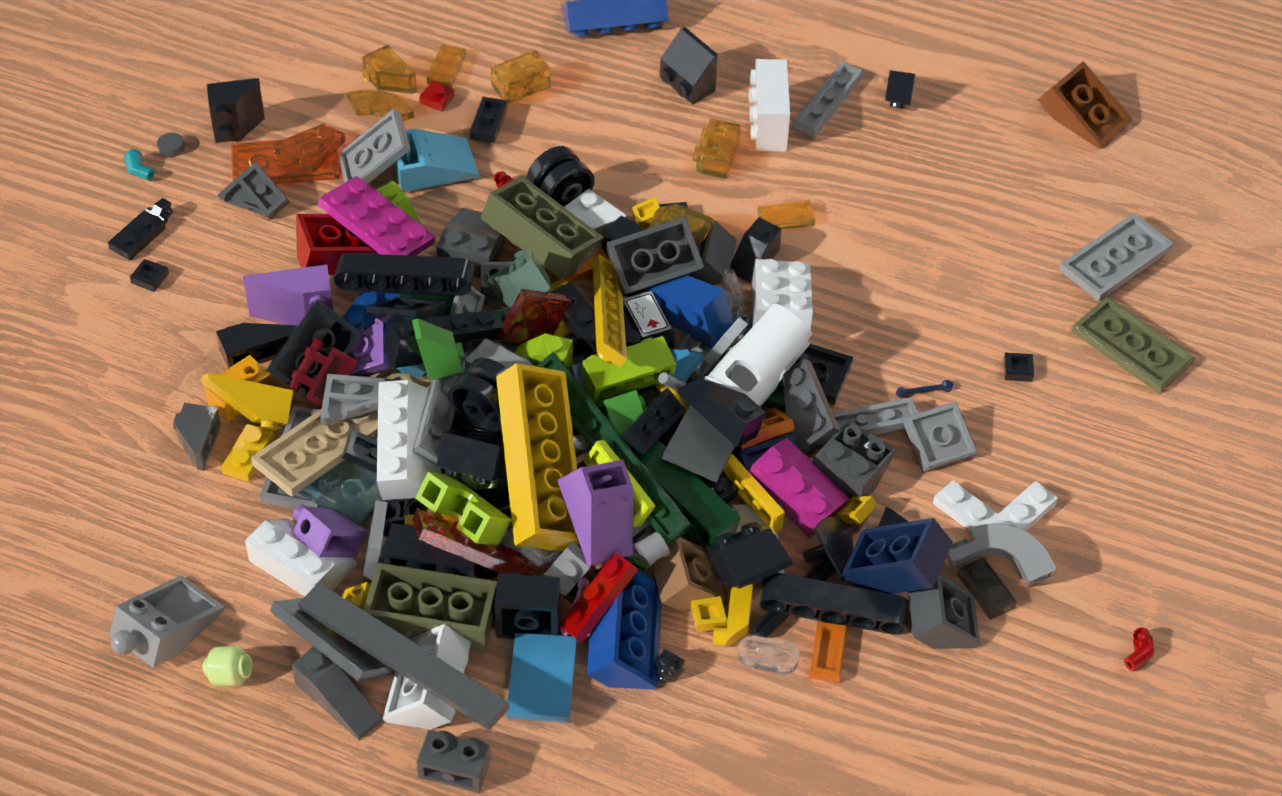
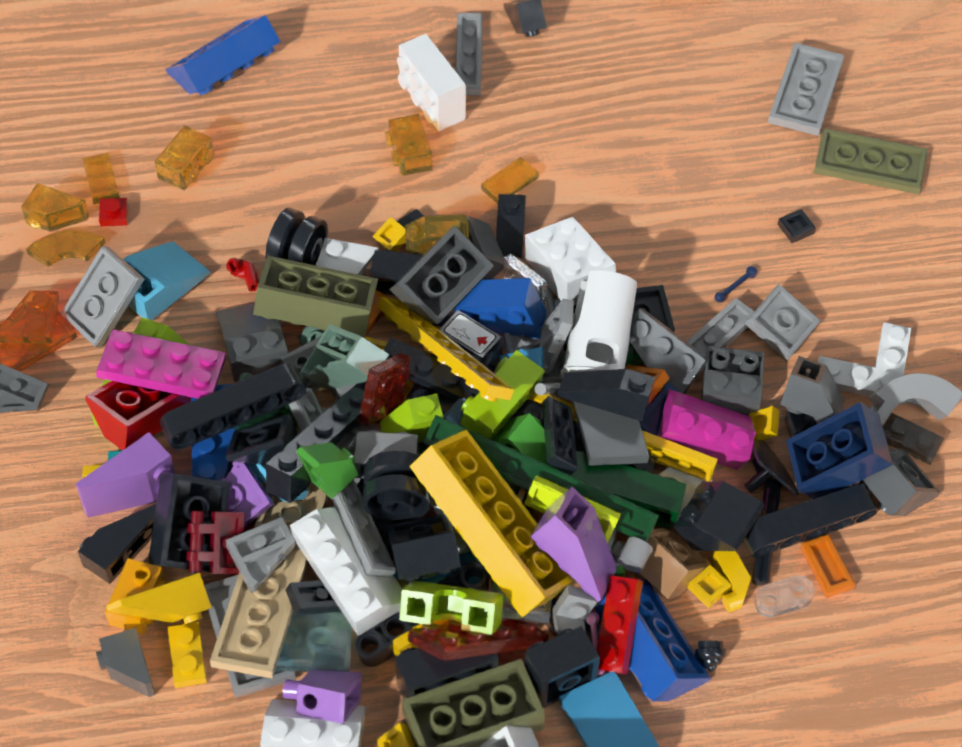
camera: 30 degrees left, 5 degrees up
(376, 542) = (383, 683): light grey wing -> none
(488, 119) = (181, 213): black plate -> none
(689, 66) = (333, 77): black slope -> none
(916, 496) = (812, 391): none -> dark grey slope

